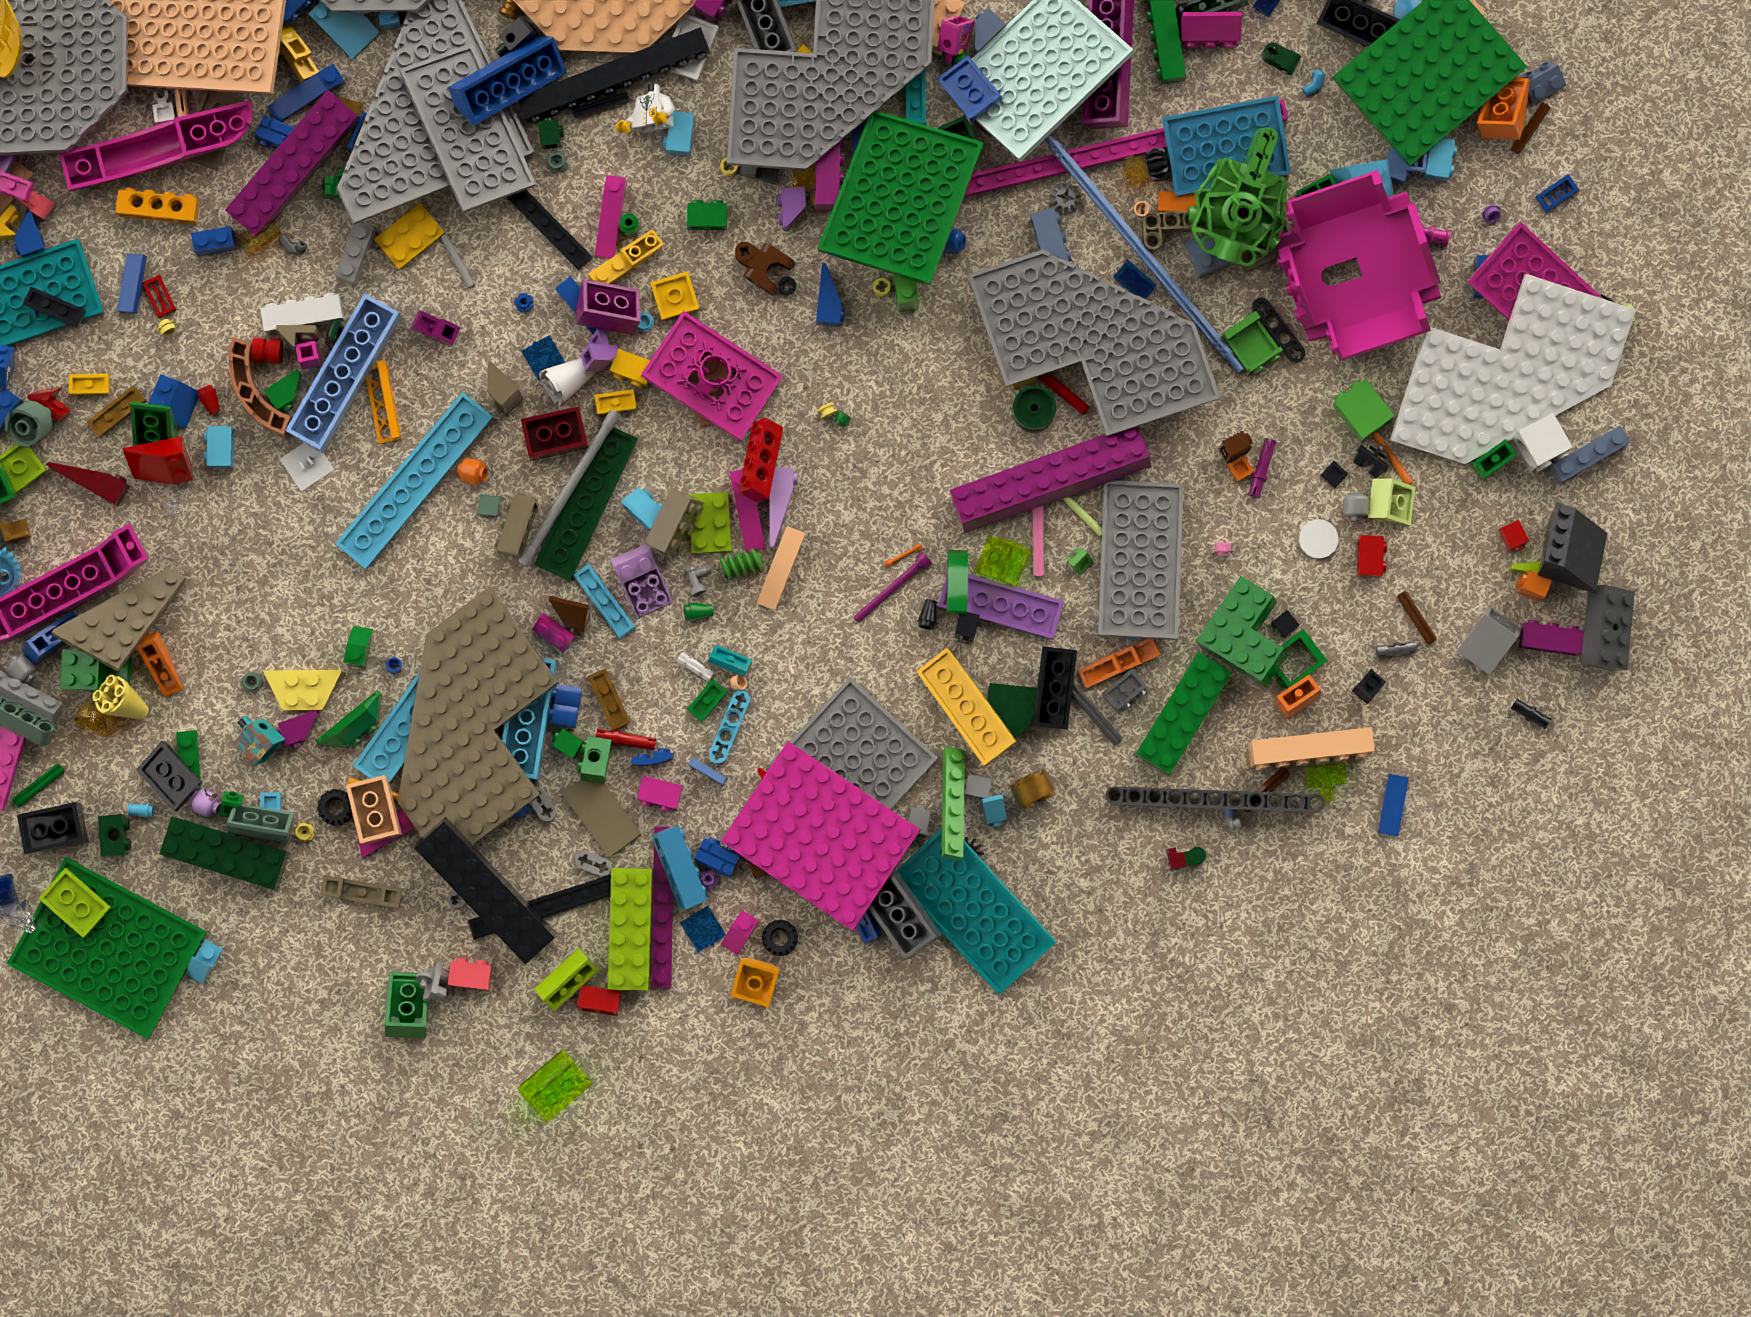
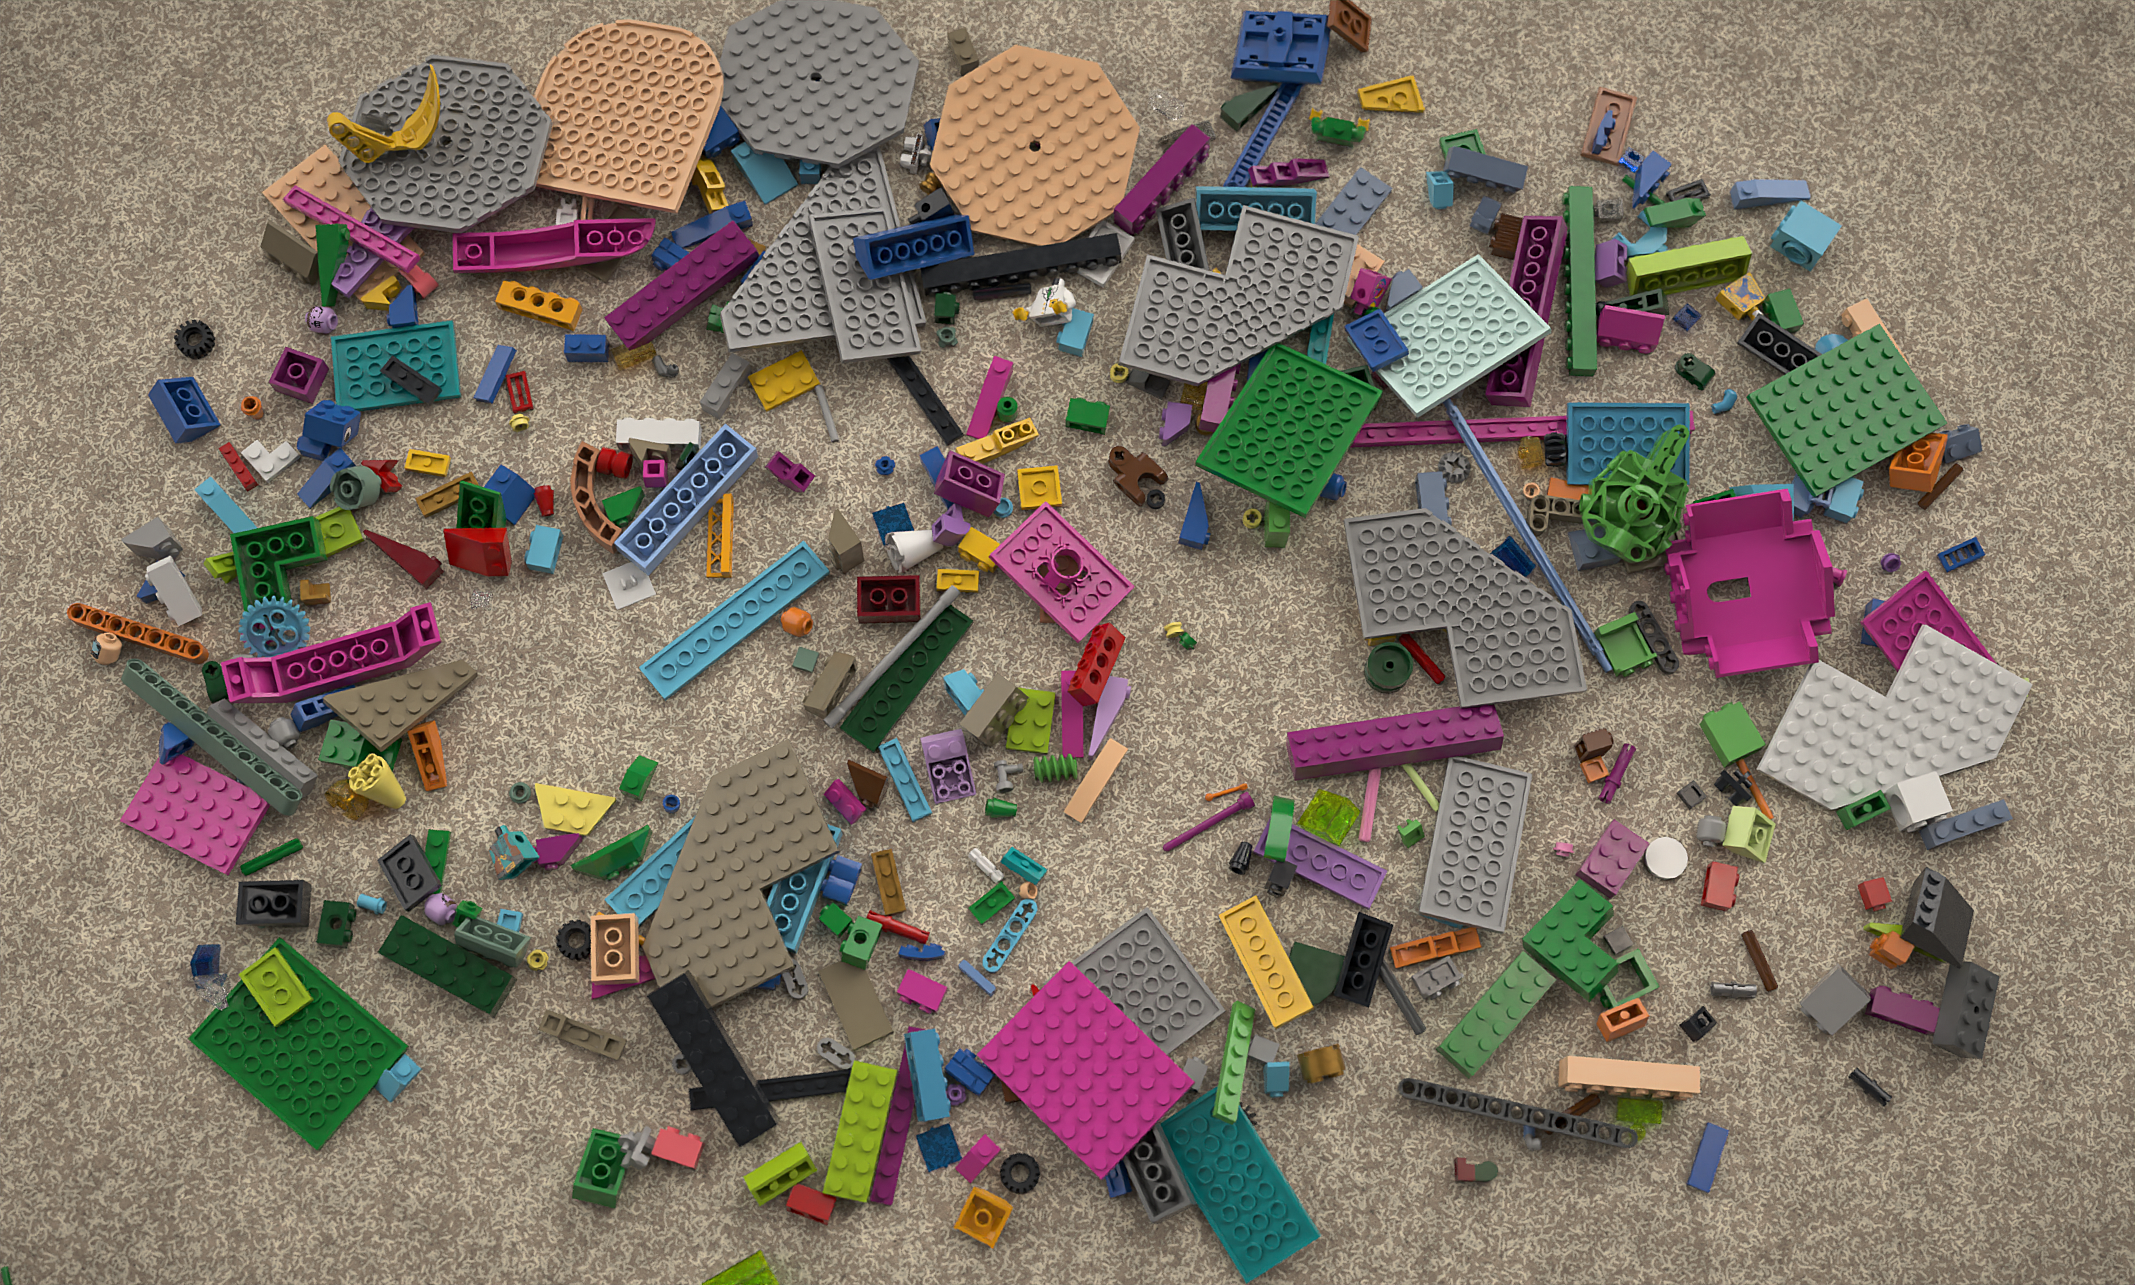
camera: 10 degrees right, 10 degrees down
(1268, 550) = (1612, 859): none -> brick

